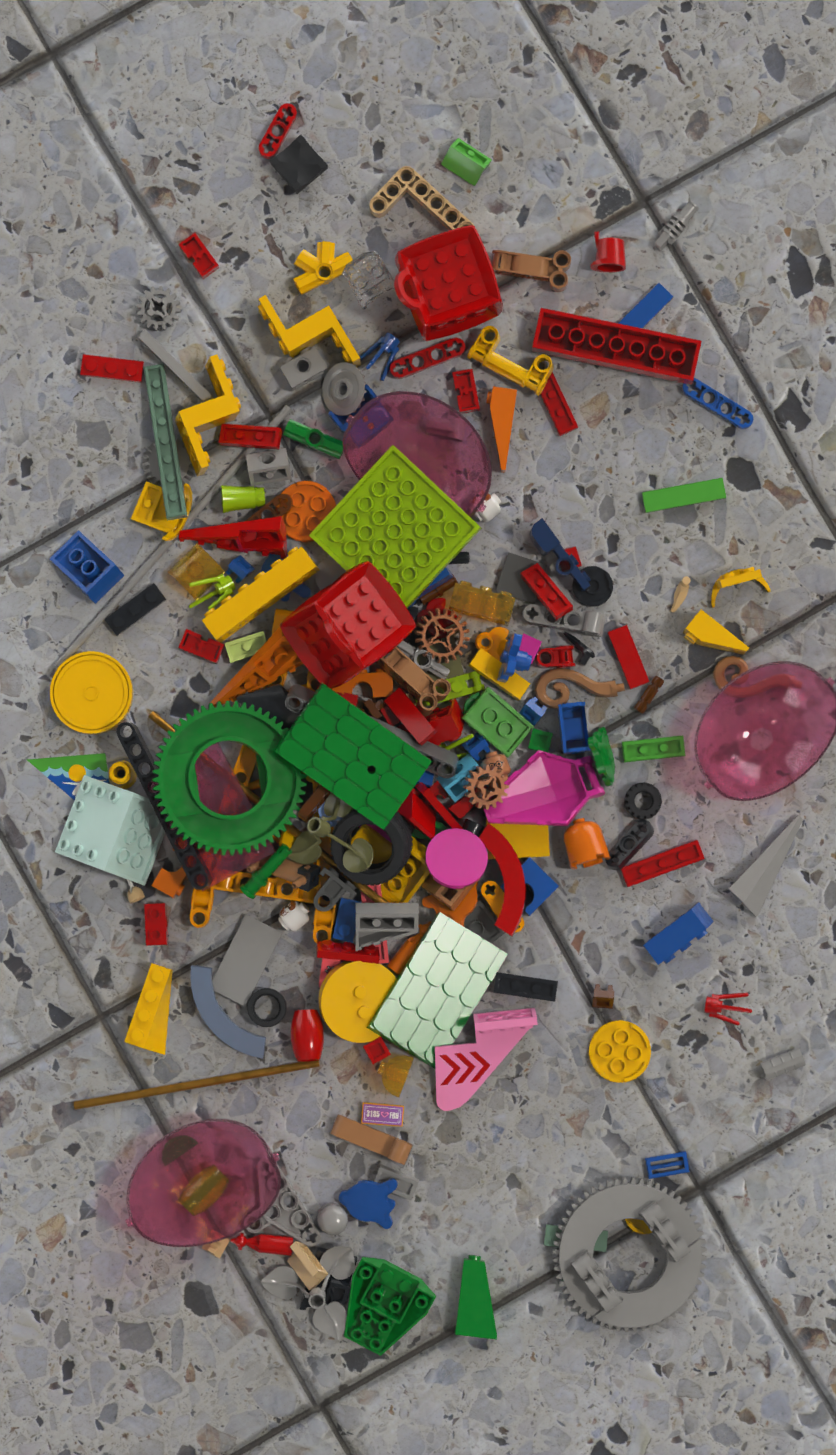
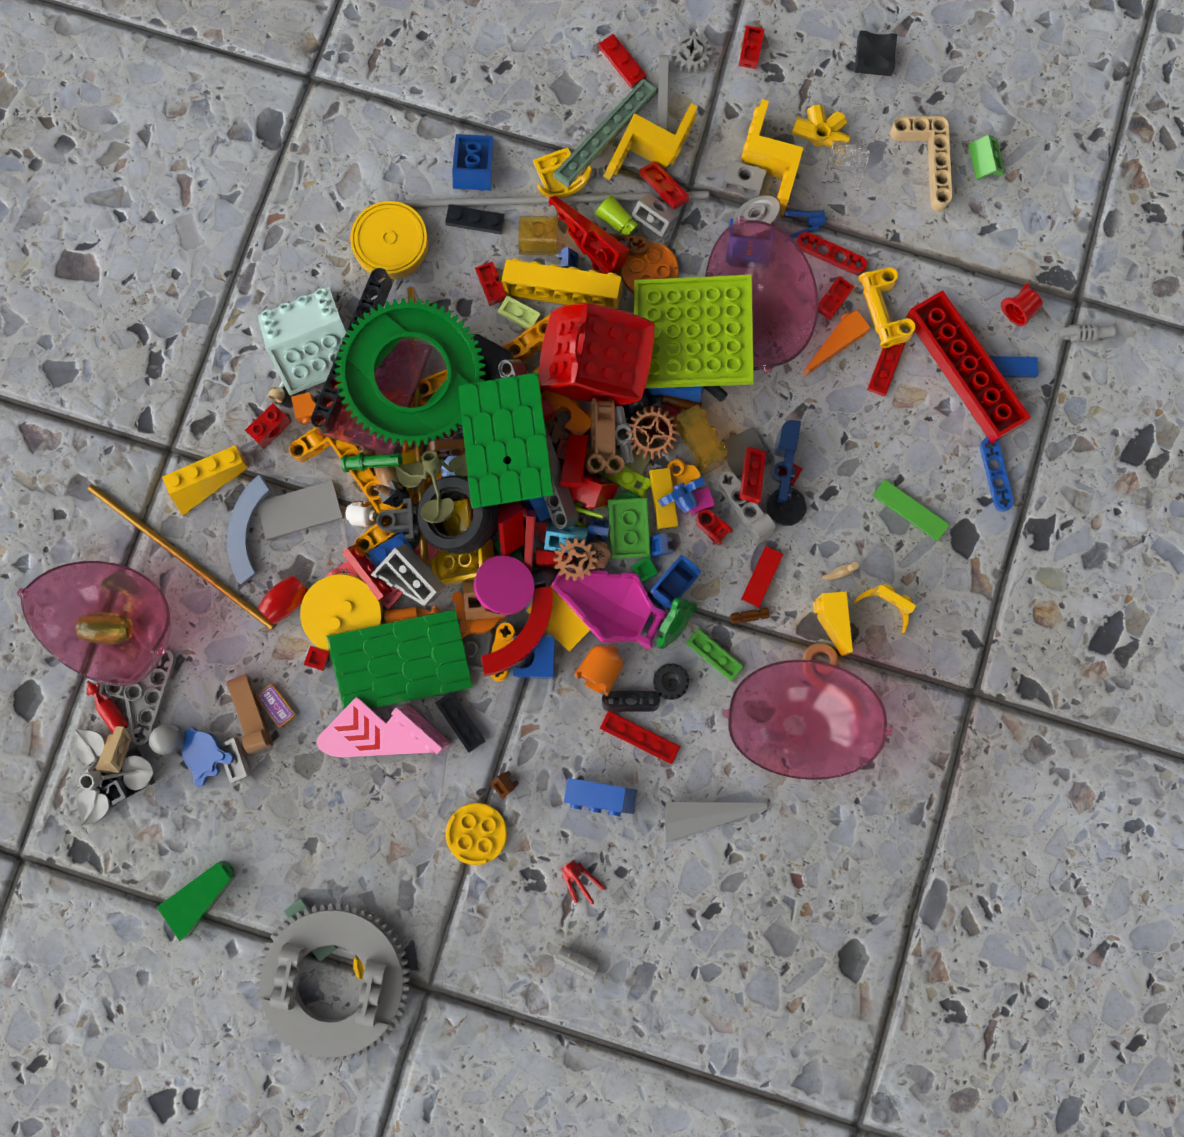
camera: 45 degrees right, 5 degrees down
(69, 770) = (323, 275): sticker -> none
(129, 778) = (348, 303): yellow plant -> none
(216, 1248) = (73, 678): tan tile -> none
(223, 586) = (545, 258): lime plant -> none
(251, 1007) = (268, 543): black tyre -> none
(264, 667) = (517, 333): orange wedge -> none
(276, 146) = (889, 16): red beam -> none
(302, 433) = (700, 219): green piece -> none
(384, 1304) = (136, 833): green wedge -> none
(395, 1073) = (310, 686): clear yellow brick -> none
(448, 283) = (897, 208): red piece -> none
(492, 508) = (770, 383): white head -> none
(532, 267) = (963, 265): medium nougat piece -> none
(587, 653) = (737, 545): black bar -> none
(600, 689) = (722, 580): medium nougat plant -> none
(656, 1175) = (411, 936): blue tile -> none

